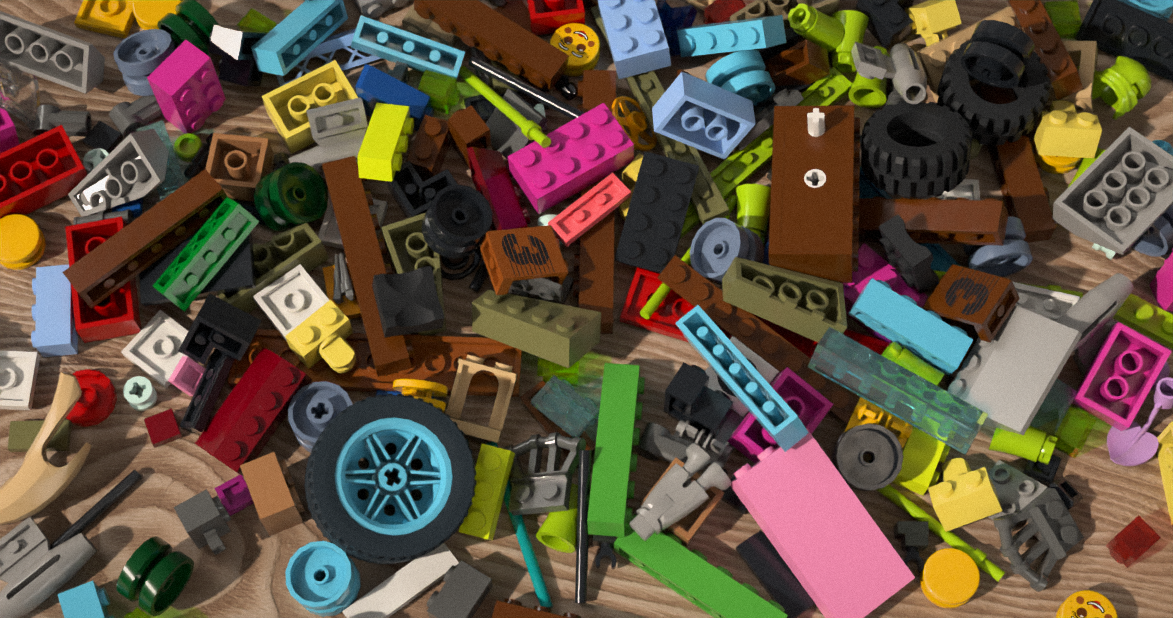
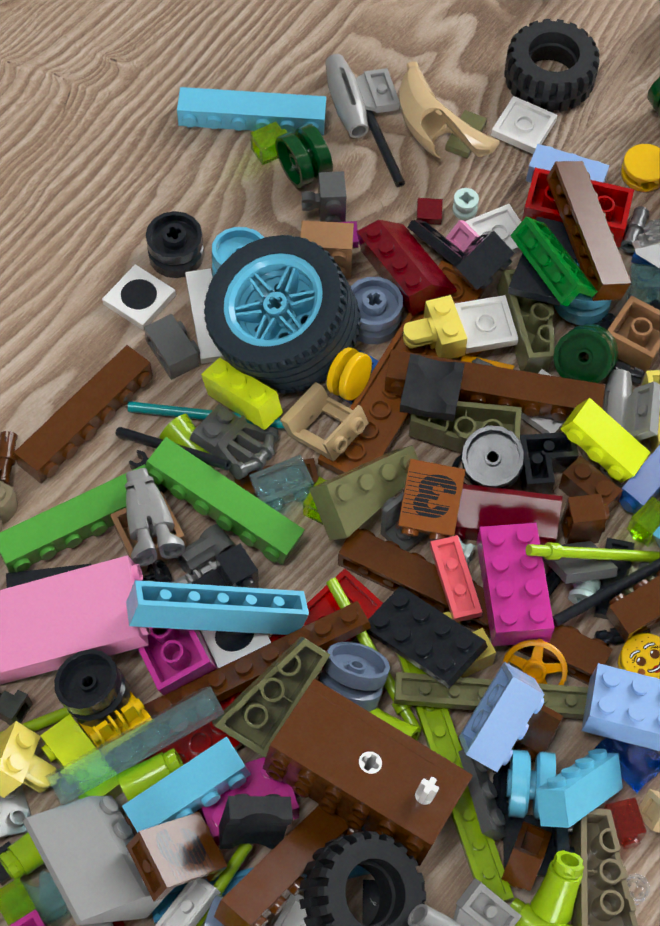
camera: 115 degrees right, 5 degrees down
(96, 399) = (483, 174): red tile -> none

